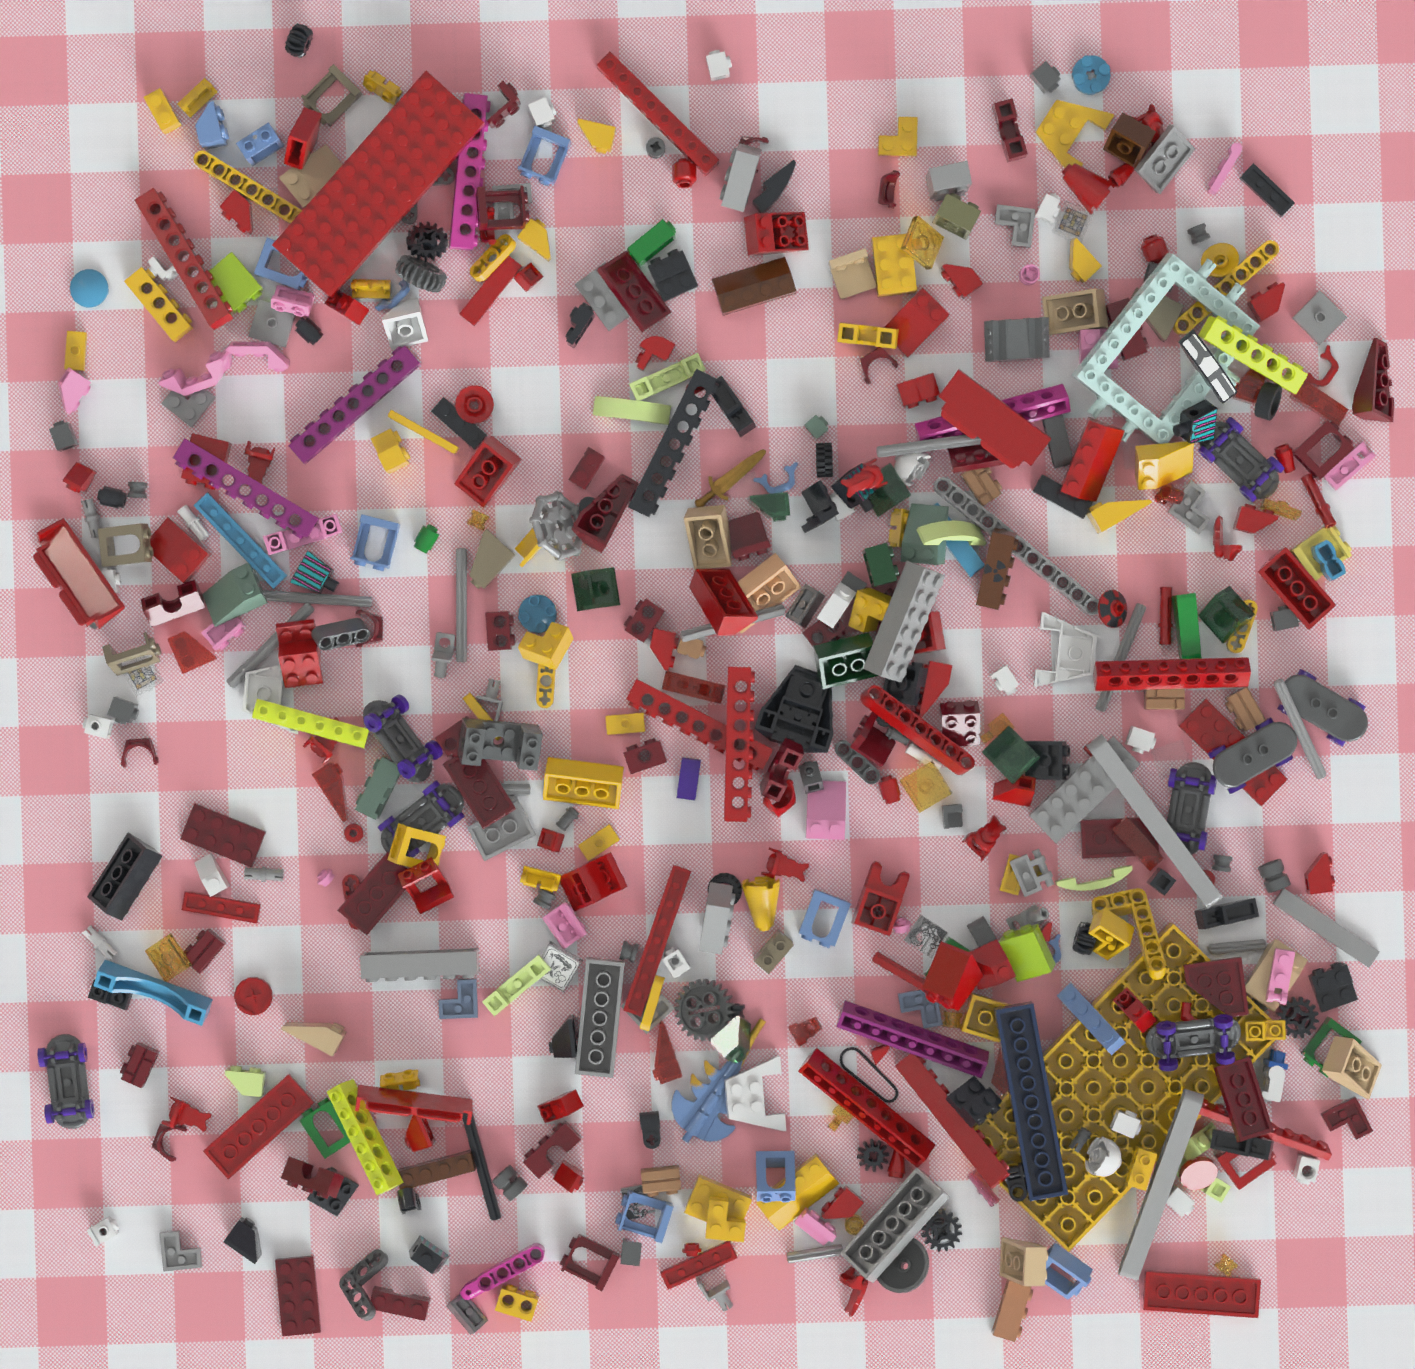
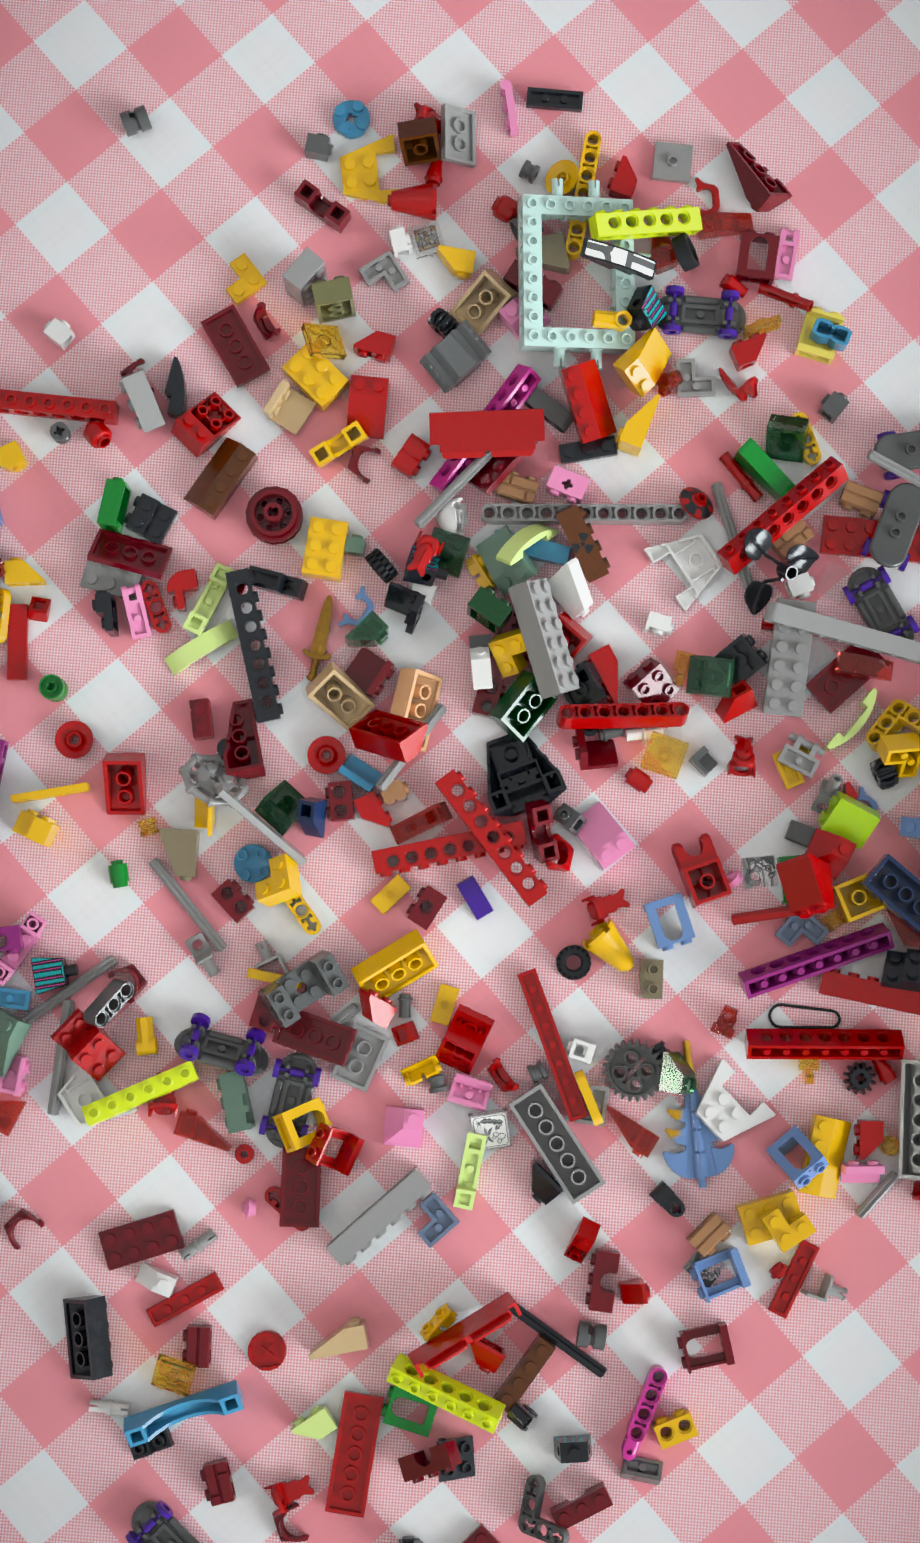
camera: 45 degrees left, 5 degrees down
(346, 685) = (146, 1041): none -> yellow piece
(358, 553) = (73, 927): medium blue panel -> none
(467, 431) = (83, 766): black plate -> none
(490, 350) = (53, 688): none -> green wheel
(492, 910) = (403, 1126): none -> bright pink slope
(543, 804) = (375, 1008): none -> slope
(567, 590) = (260, 824): none -> light grey tile
(600, 933) = (503, 1075): none -> red helmet
(602, 341) = (136, 612): none -> bright pink plate
(613, 614) = (312, 816): none -> dark blue slope
(621, 334) = (165, 618): none -> red beam
(631, 1253) = (733, 1313): dark grey panel -> none
(659, 564) = (319, 747): none -> red dish
(677, 610) = (360, 773): none -> dark azure panel
(717, 918) = (585, 988): light grey brick -> none
(782, 368) = (293, 521): none -> dark red wheel
(790, 410) = (325, 549): none -> yellow brick
(805, 606) = (457, 690): flat silver slope -> none
(850, 188) = (235, 346): none -> dark red plate
(863, 769) = (605, 778): dark grey beam -> none
(878, 1052) = (797, 992): red slope -> none
(957, 599) = (571, 589): none -> white slope
(1029, 274) = (422, 300): bright pink wheel -> none
(1029, 303) = (442, 322): none -> black gear
(1032, 517) = (560, 477): none -> bright pink brick
(1155, 720) = (800, 560): none -> black plant
(1160, 410) = (609, 320): none -> yellow piece
(1161, 881) = (906, 681): black brick -> none
(1296, 588) = (824, 373): red slope -> none

